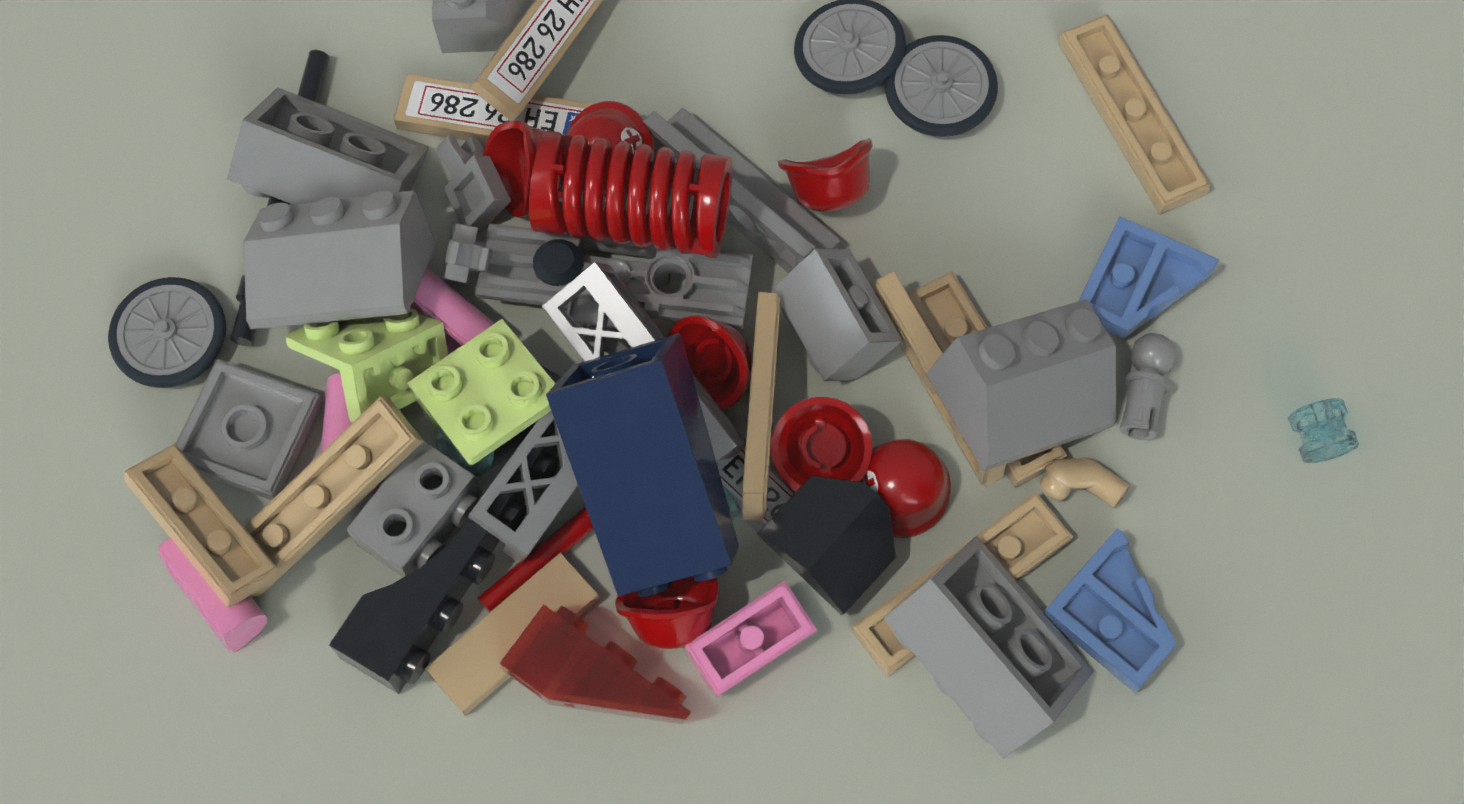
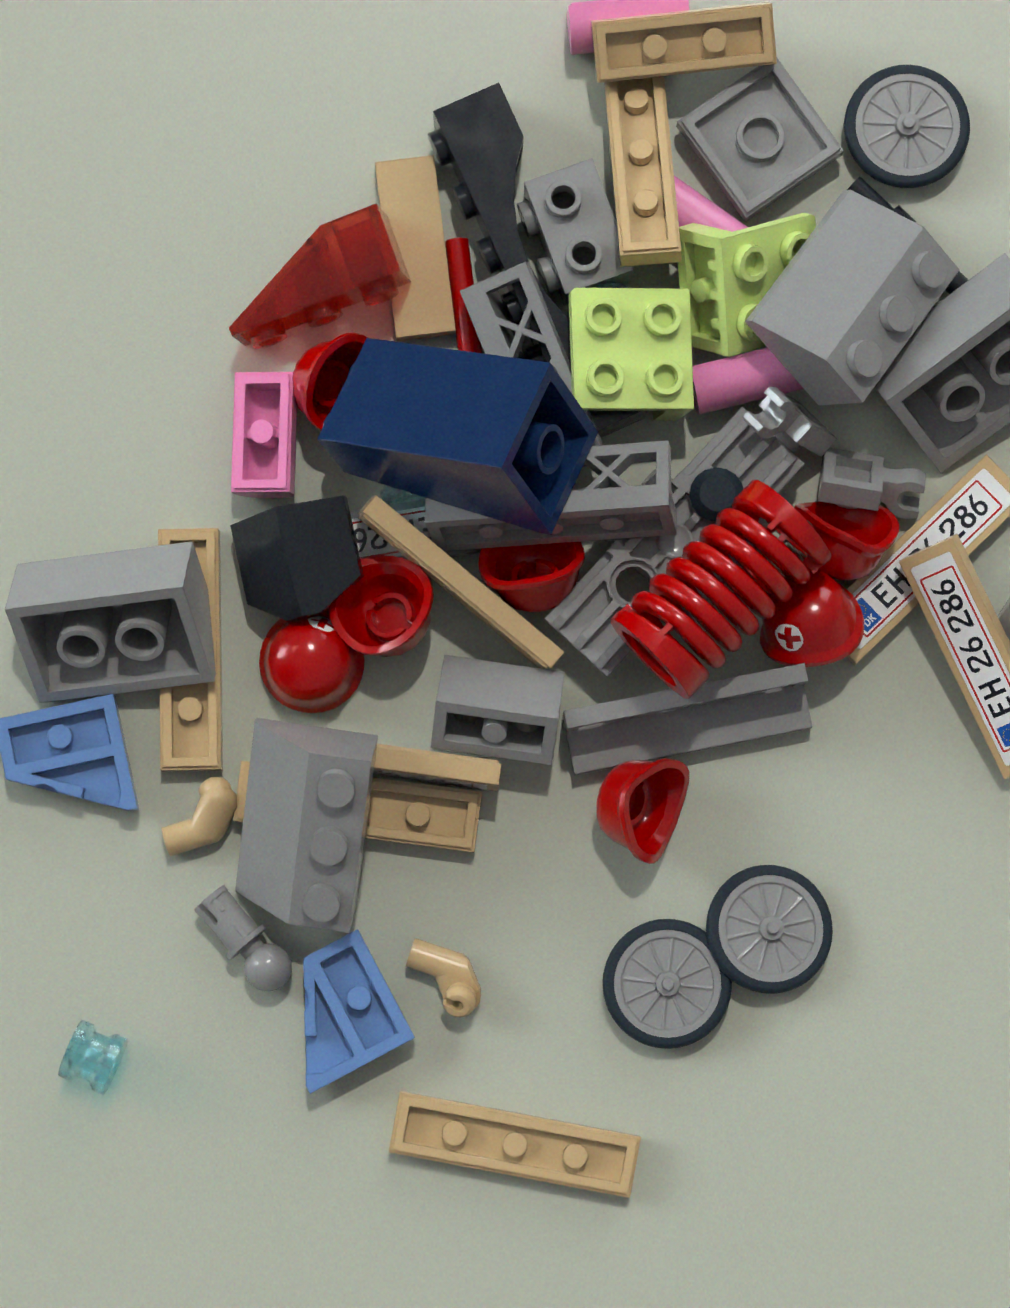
camera: 120 degrees right, 15 degrees up
(1051, 228) = (453, 974): none -> tan arm

